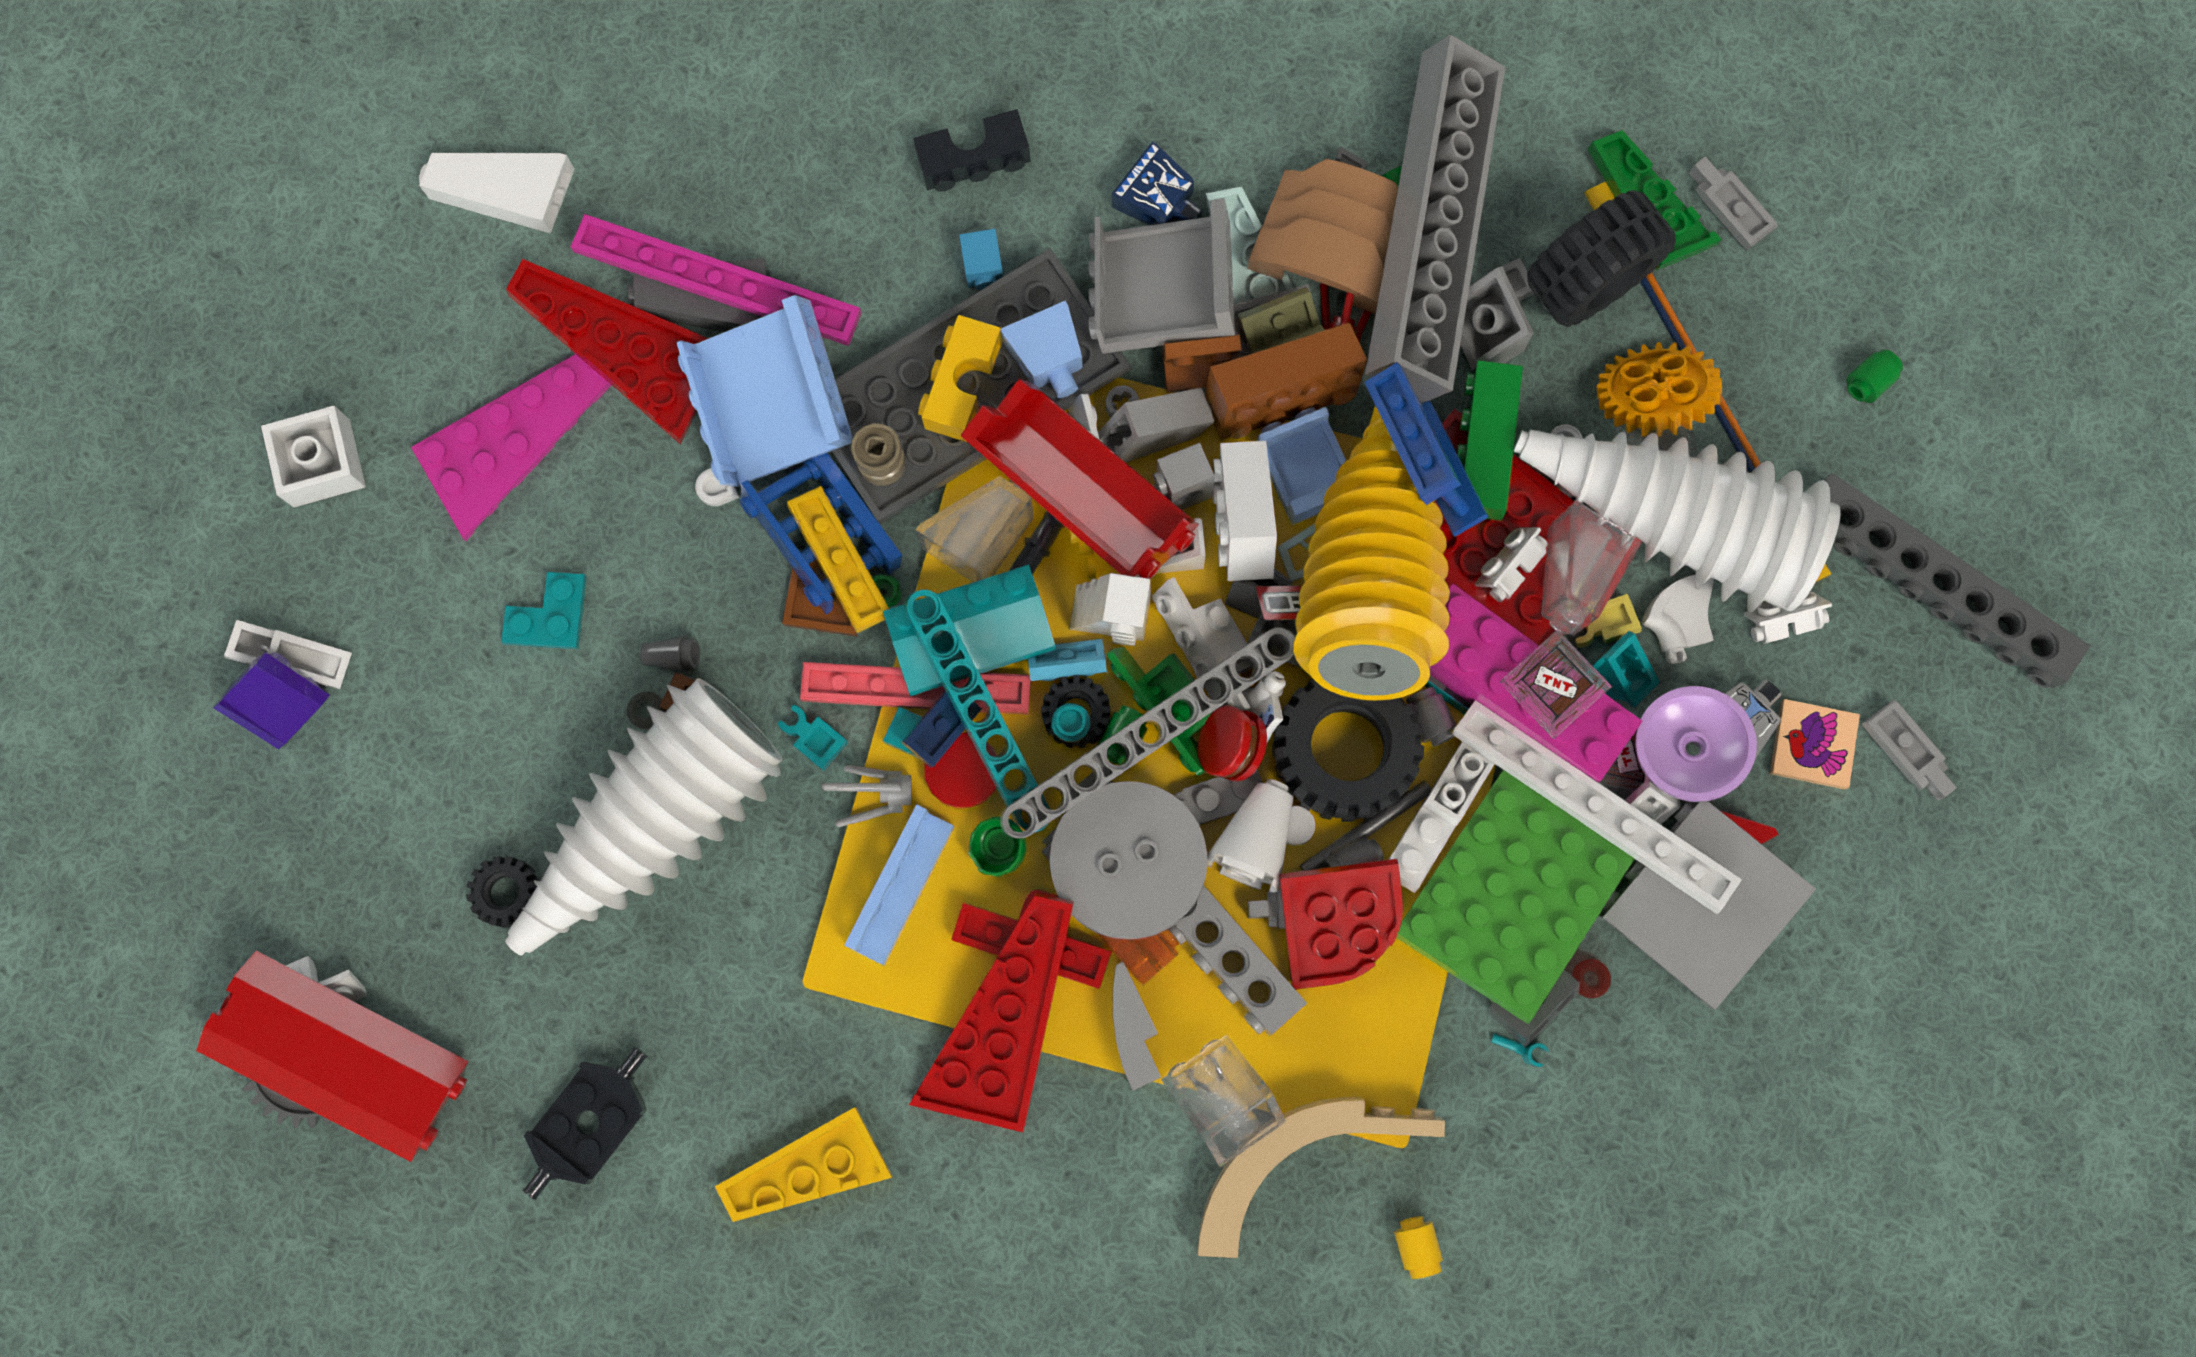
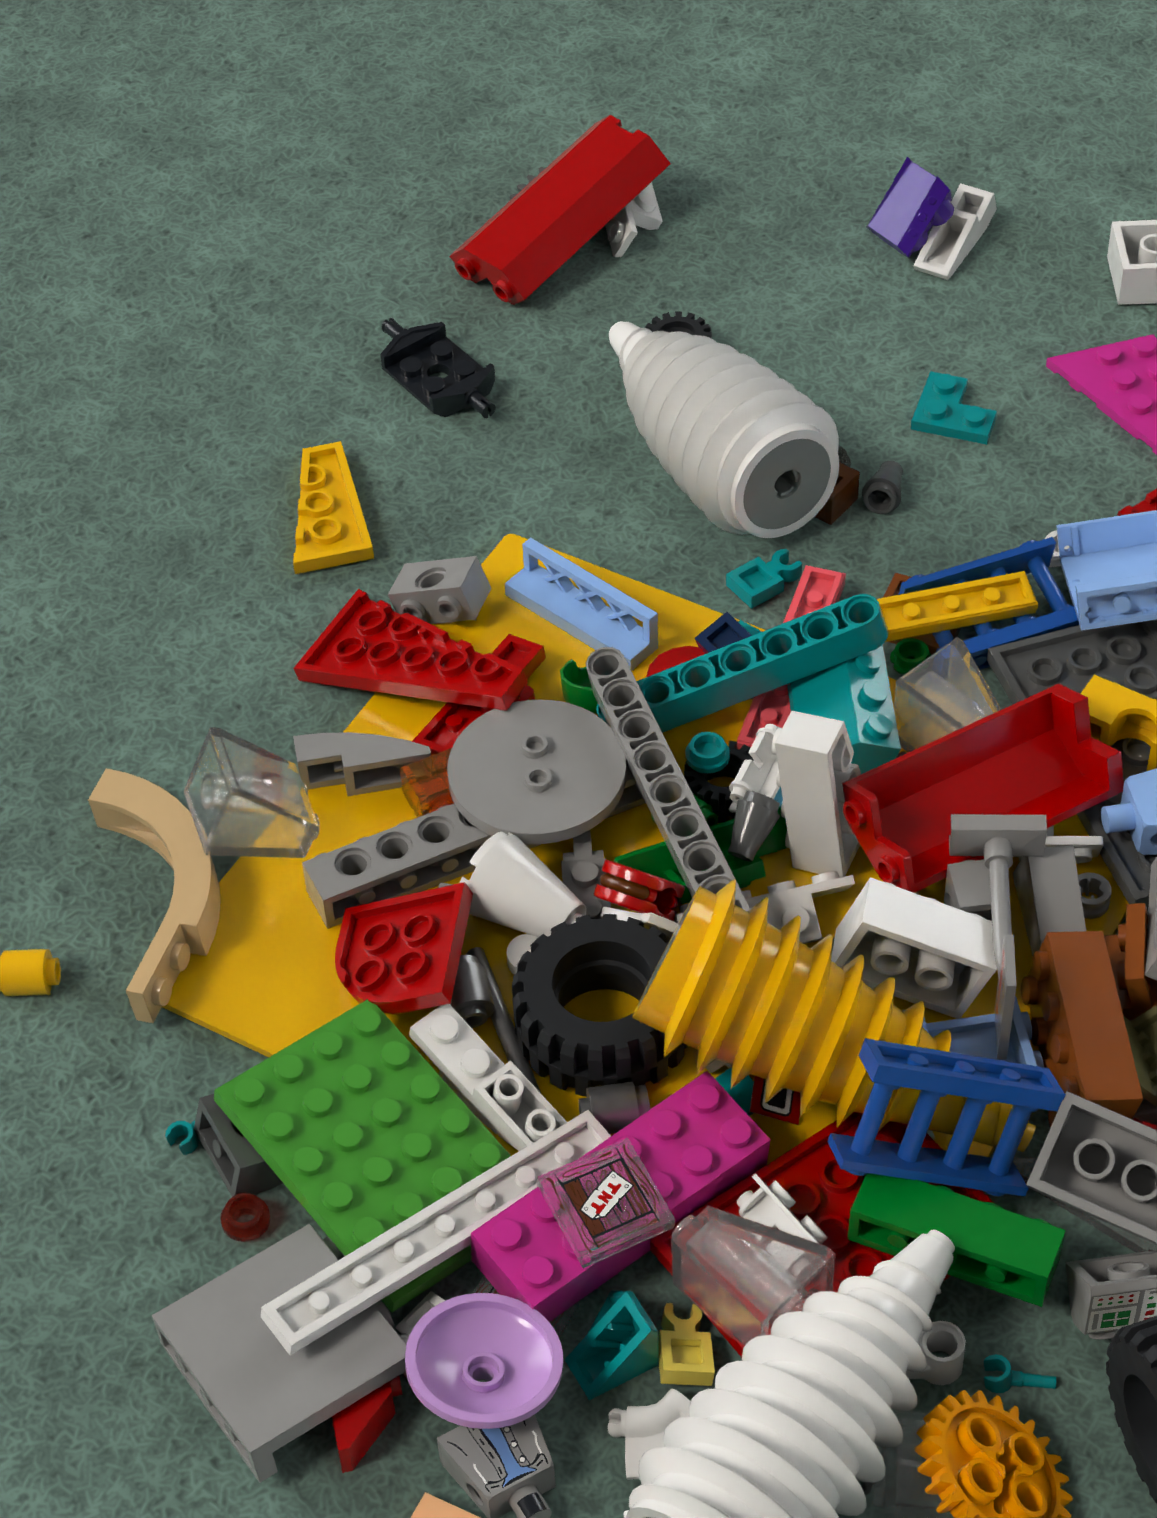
camera: 105 degrees right, 30 degrees down
(878, 454) = (1059, 641): dark tan wheel -> none
(893, 788) = (683, 620): light grey plant -> none
(899, 1041) = (441, 590): none -> light grey brick
(1087, 668) = (760, 773): none -> white hinge
(1146, 662) = (753, 822): none -> dark grey cone
(1289, 431) = (999, 840): none -> light grey piece
(1557, 396) = (1011, 1377): none -> teal hand

